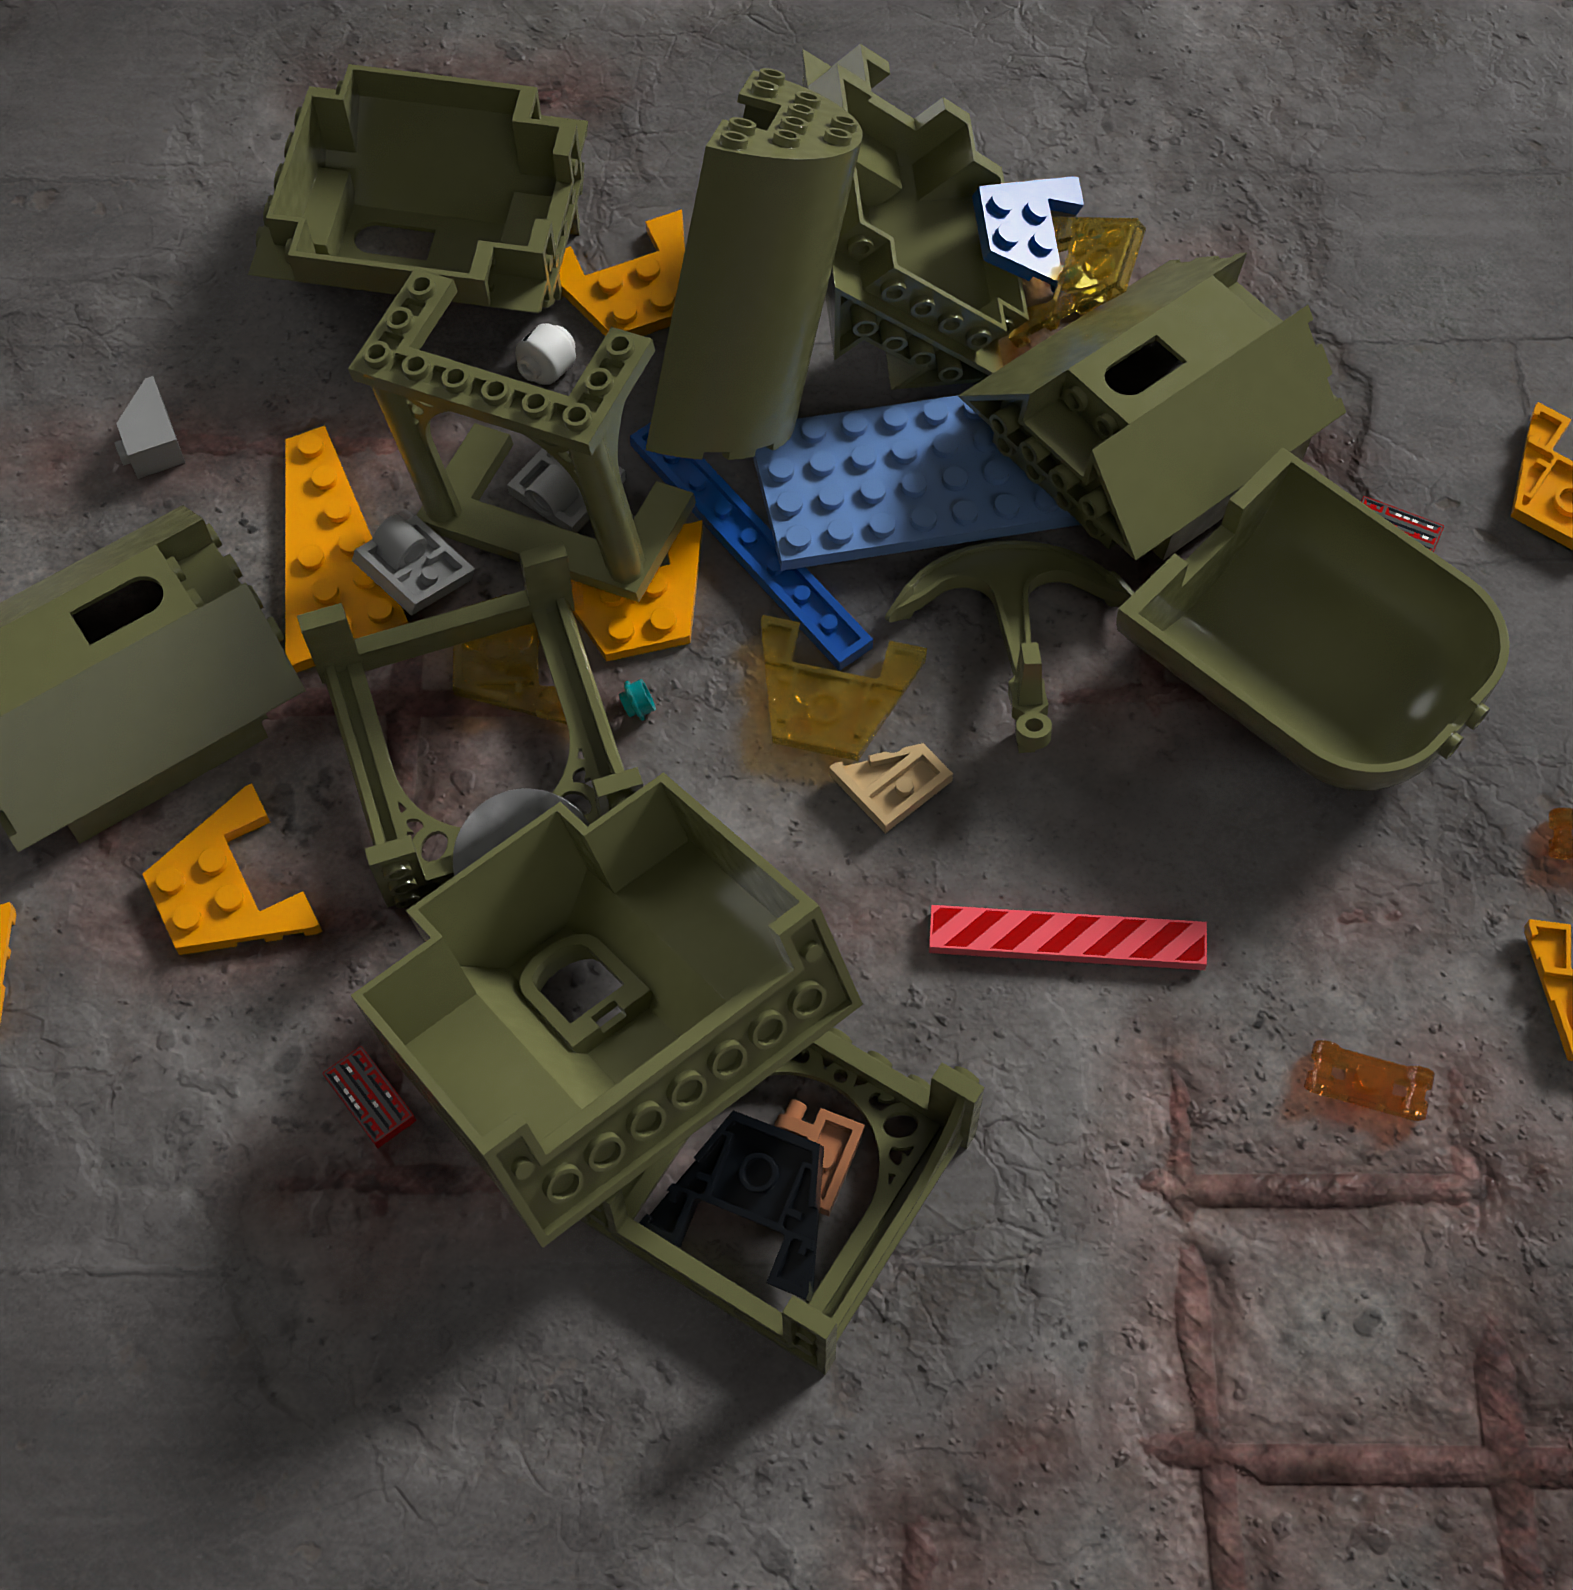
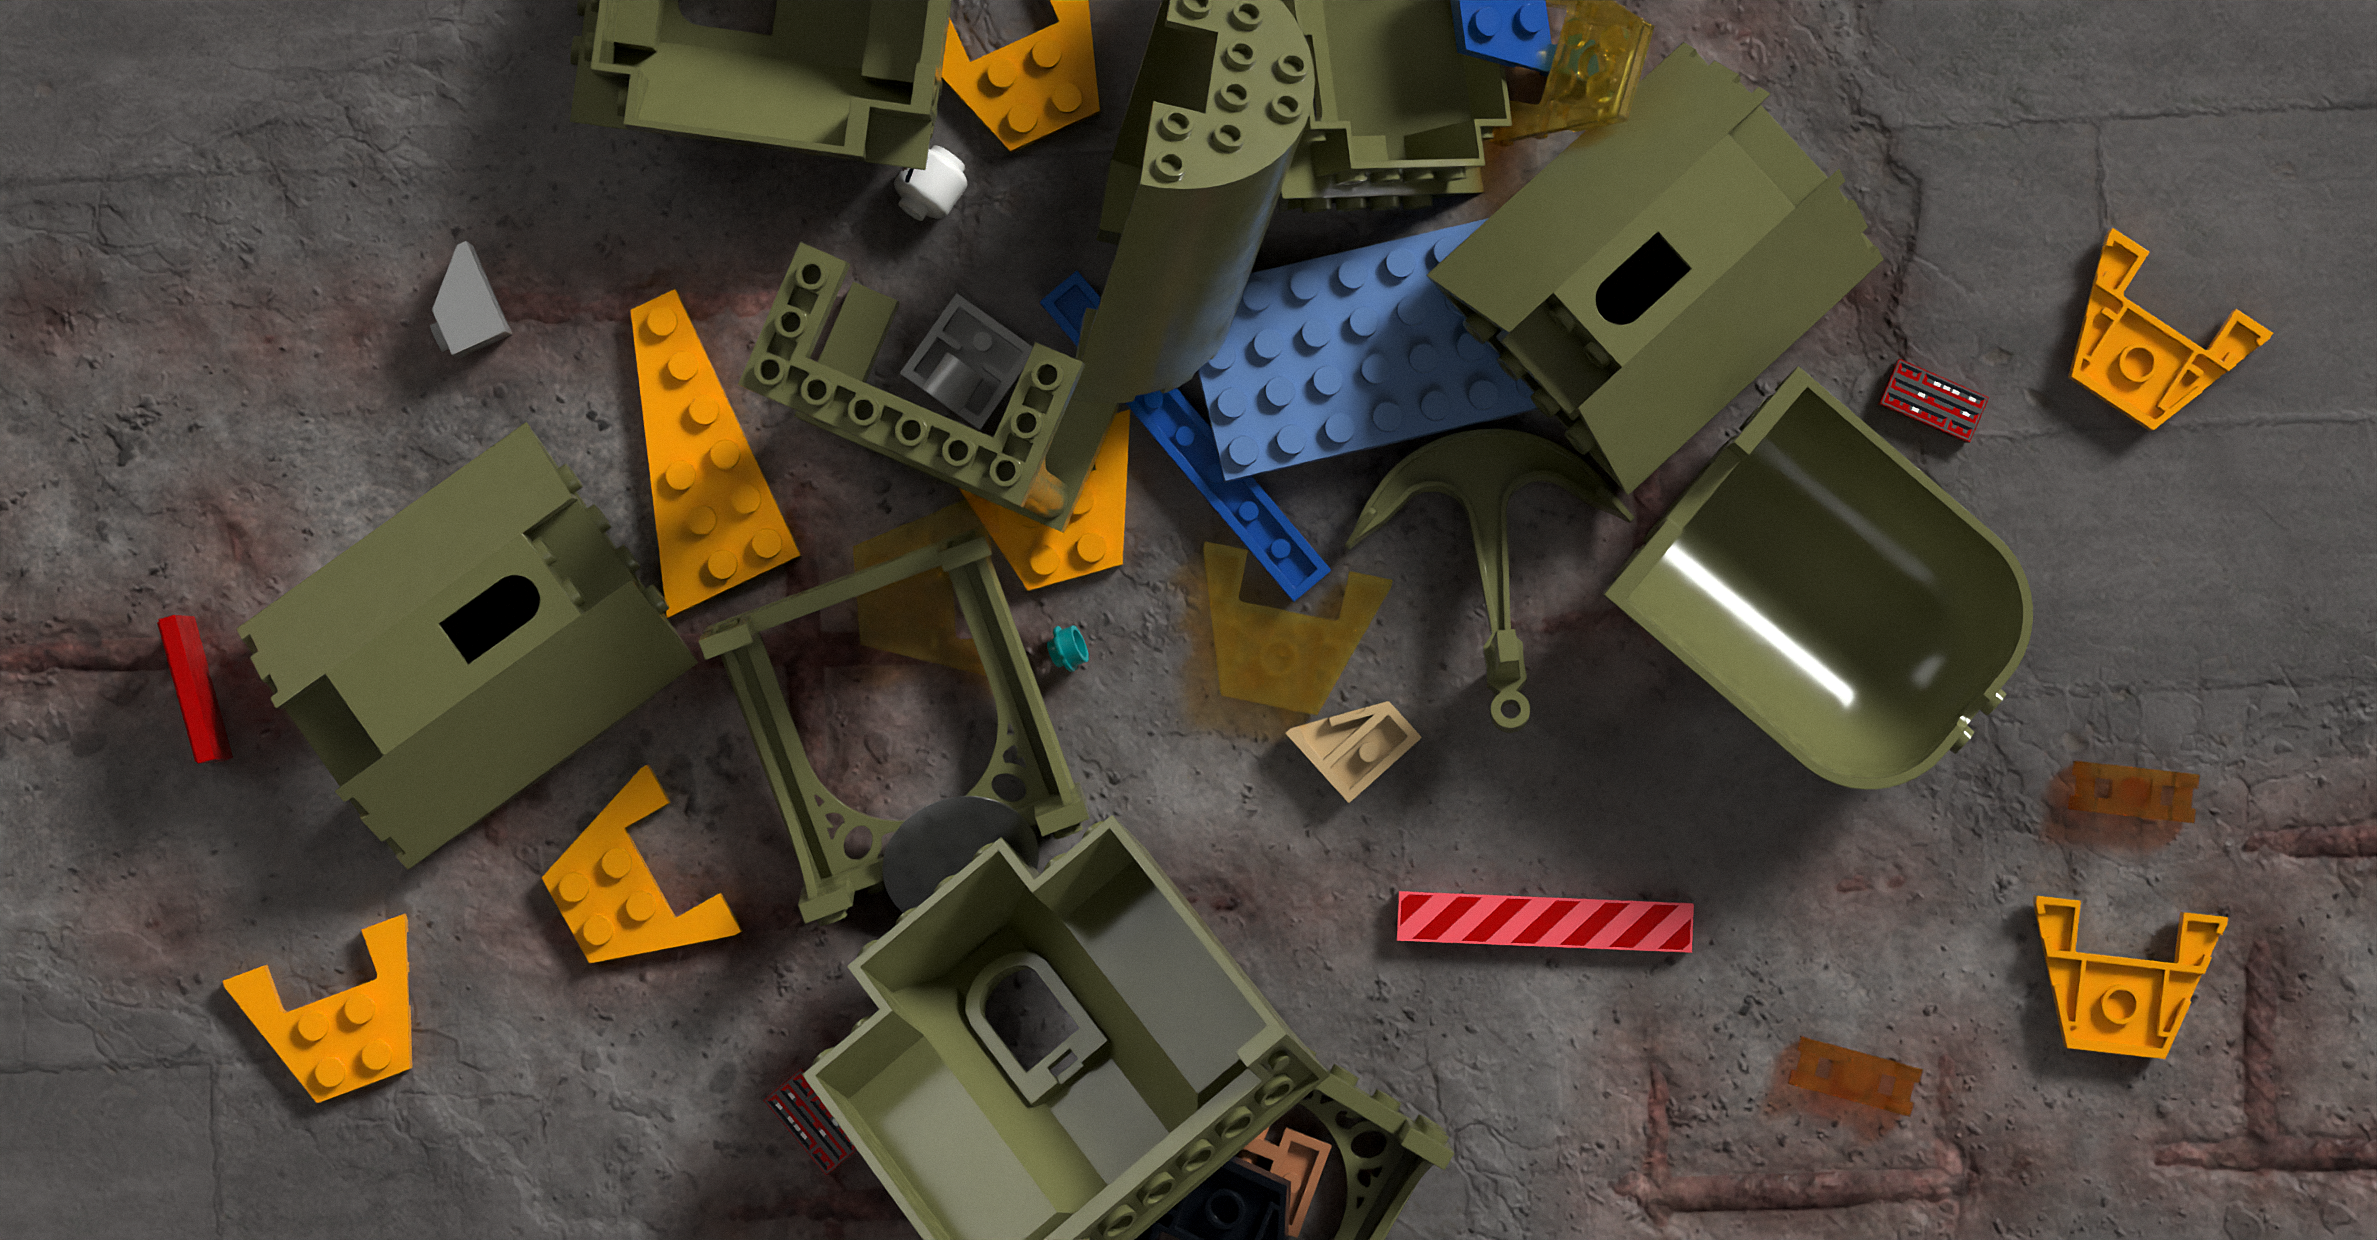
camera: 10 degrees left, 25 degrees up
(412, 563) = (801, 488): light grey plate -> none

